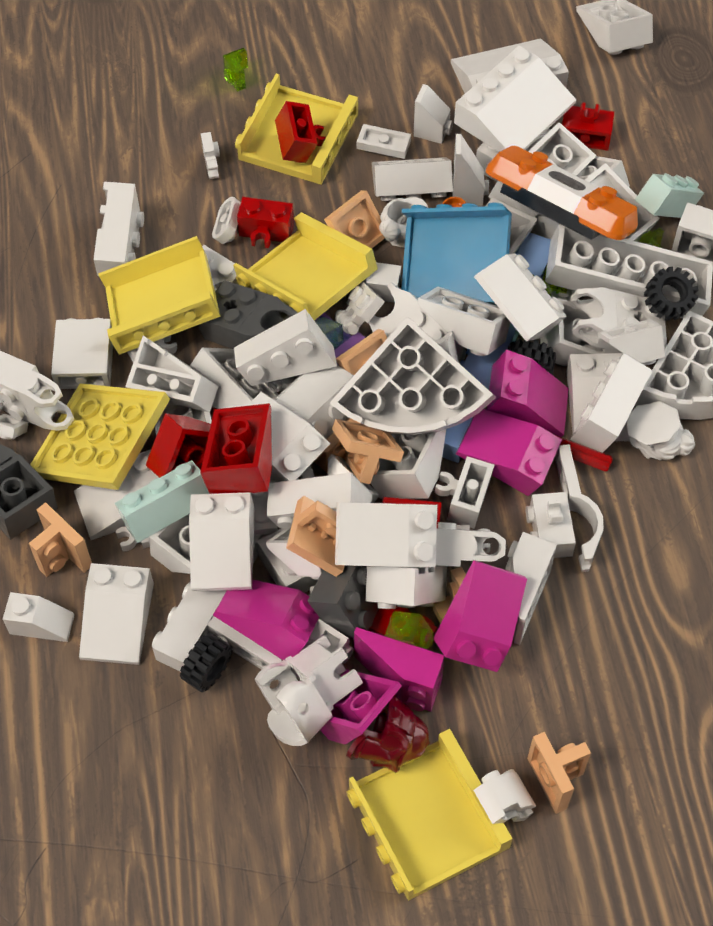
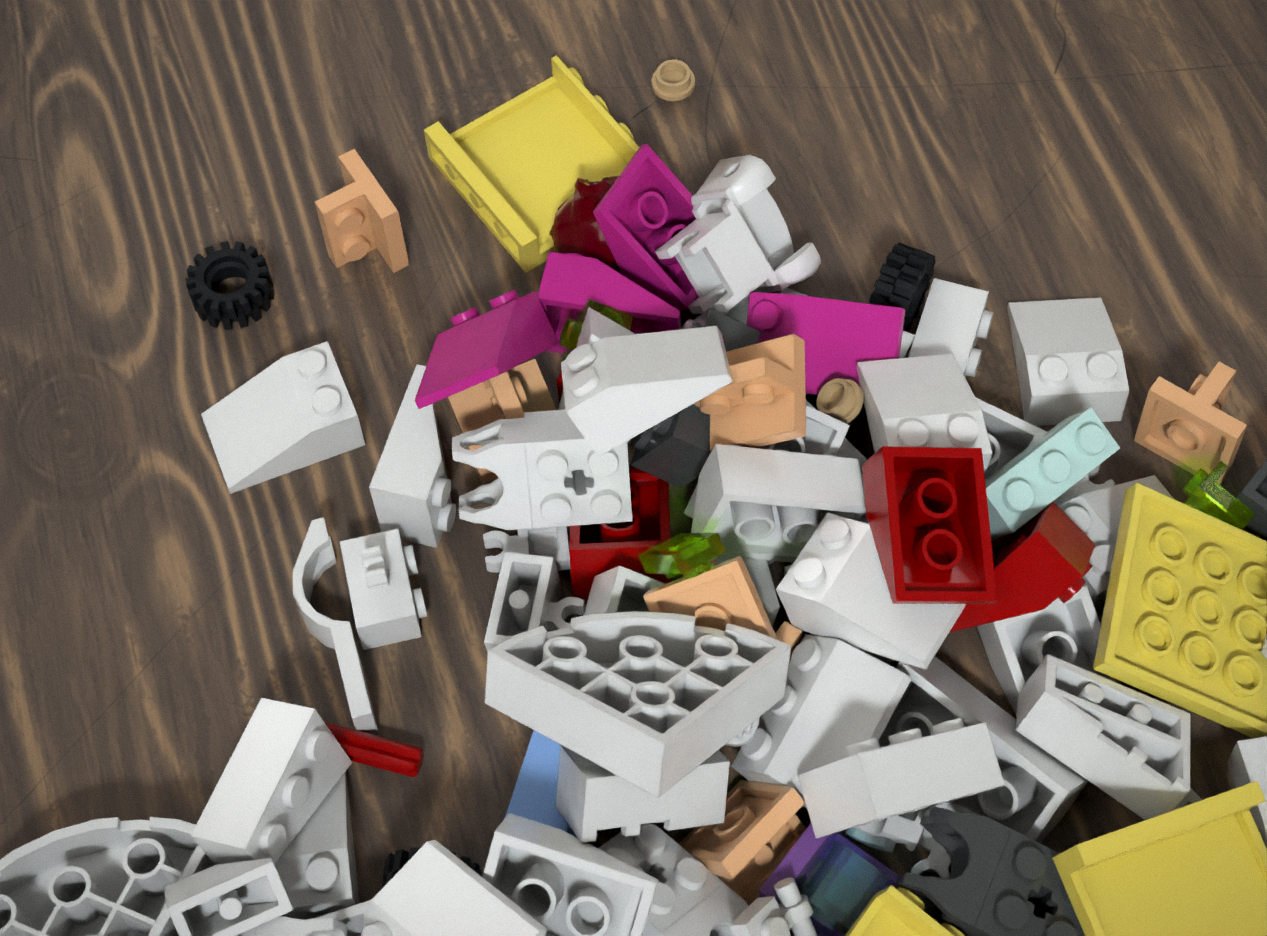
camera: 175 degrees right, 0 degrees up
(37, 618) = (1186, 329): white slope -> none
(70, 508) = (1214, 500): none -> clear neon green bracket
(266, 569) = (841, 399): none -> tan plate
(323, 877) = (673, 80): none -> tan plate
(379, 468) = (683, 554): none -> clear neon green plate
(504, 797) = (433, 168): white cylinder -> none
(515, 447) = (436, 699): dark pink slope -> none
(528, 392) = (439, 793): dark pink slope -> none
(610, 642) = (283, 419): none -> white slope
(646, 765) = (224, 265): none -> black tyre
(658, 431) = (179, 773): white piece -> none

